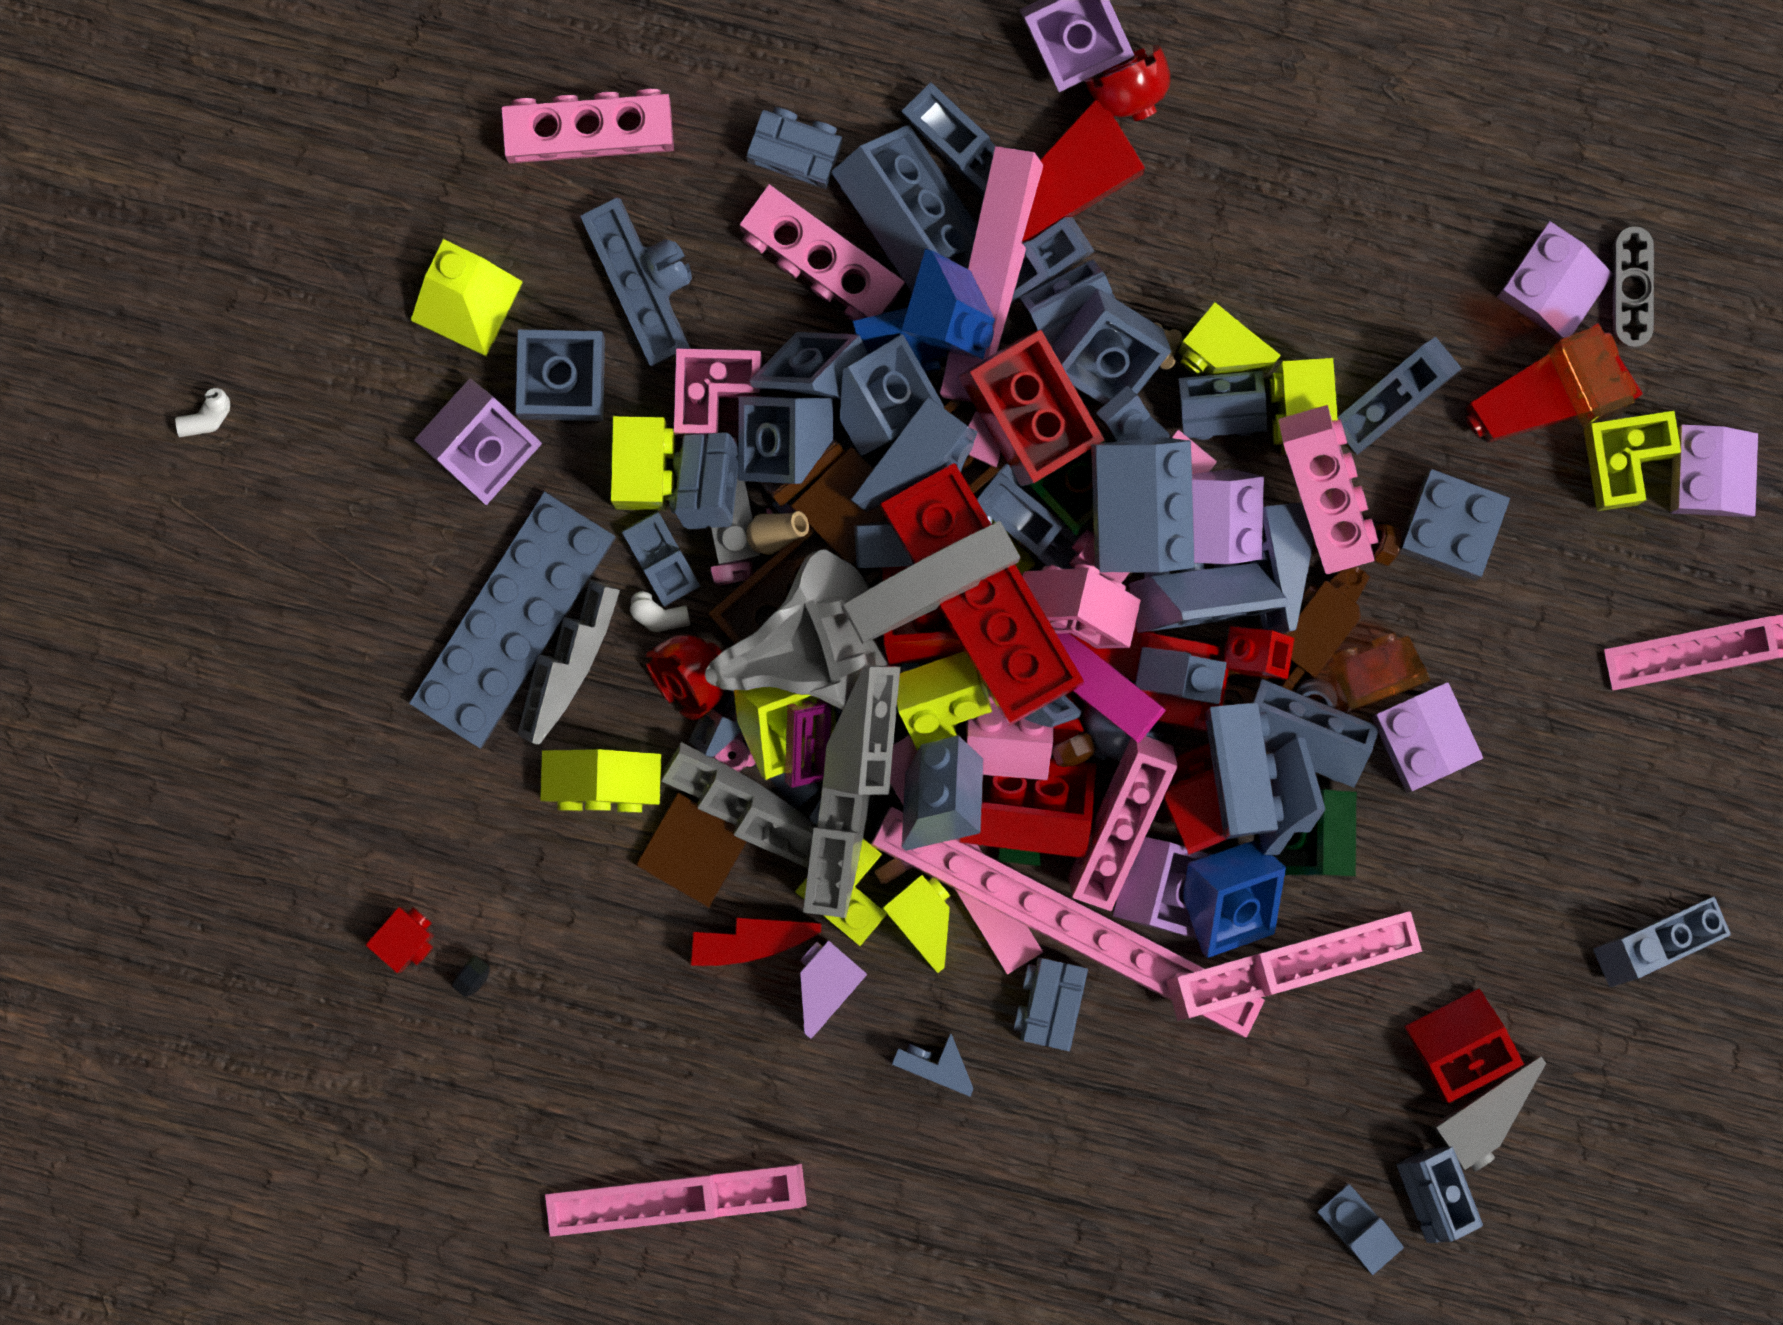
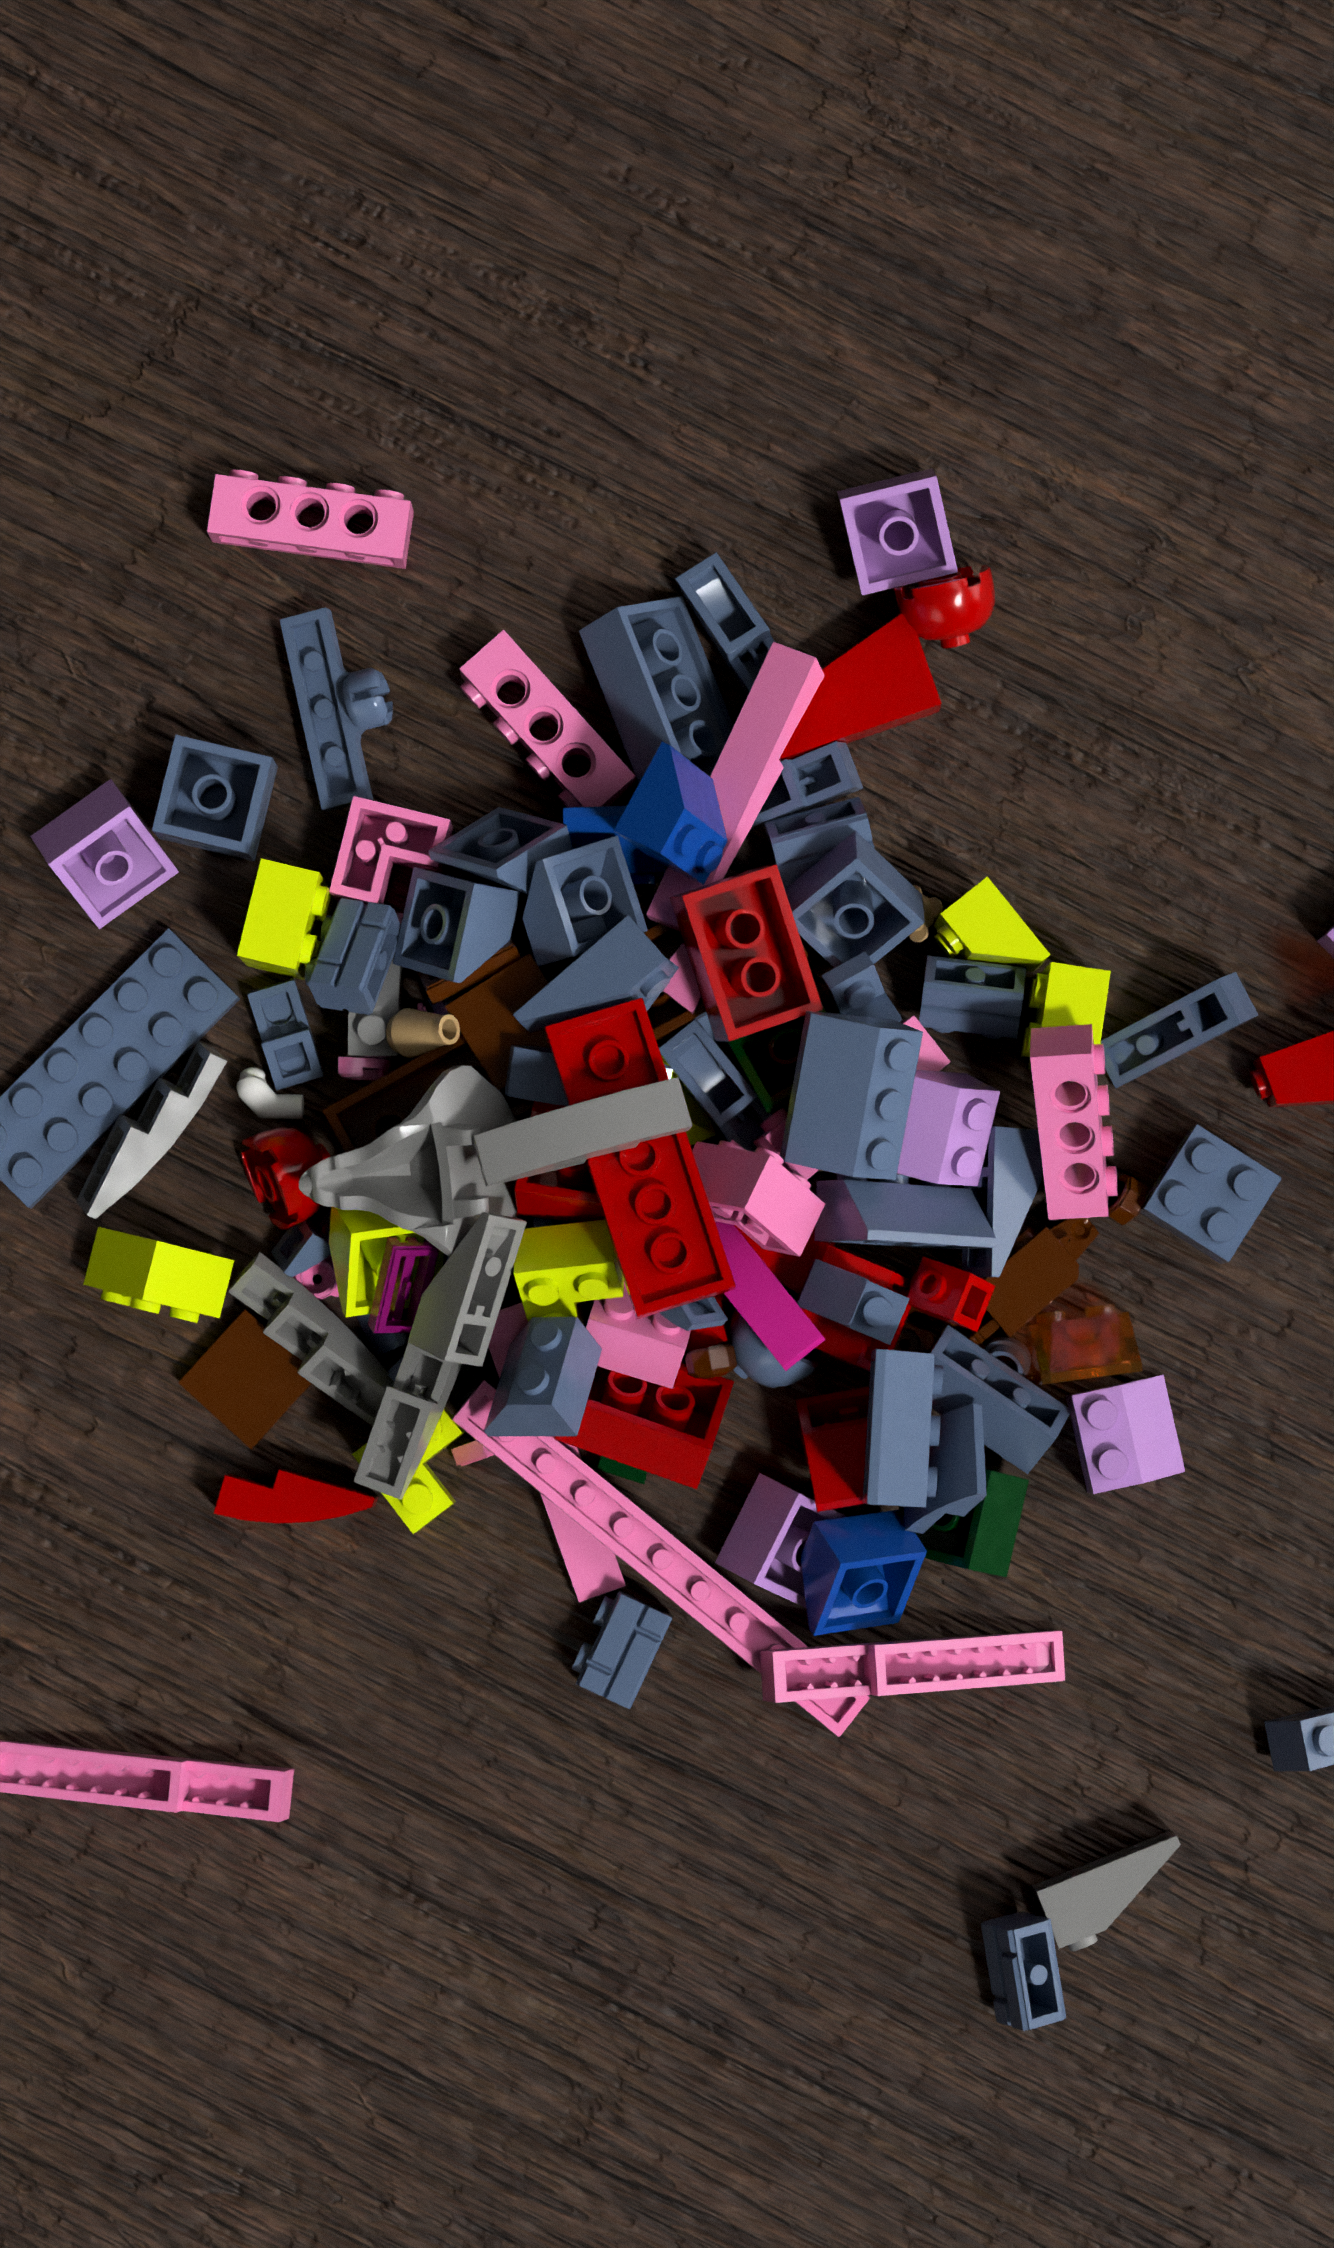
camera: 15 degrees right, 0 degrees up
(465, 298) = (126, 685): neon yellow slope -> none
(794, 147) = (544, 594): sand blue brick -> none
(826, 984) = (364, 1569): lavender slope -> none
(923, 918) = (493, 1519): neon yellow slope -> none
(947, 1072) = (484, 1702): sand blue slope -> none
(1123, 821) = (749, 1456): bright pink brick -> none
(1360, 1229) = (923, 1987): sand blue slope -> none
(1463, 1045) = (1089, 1803): red slope -> none

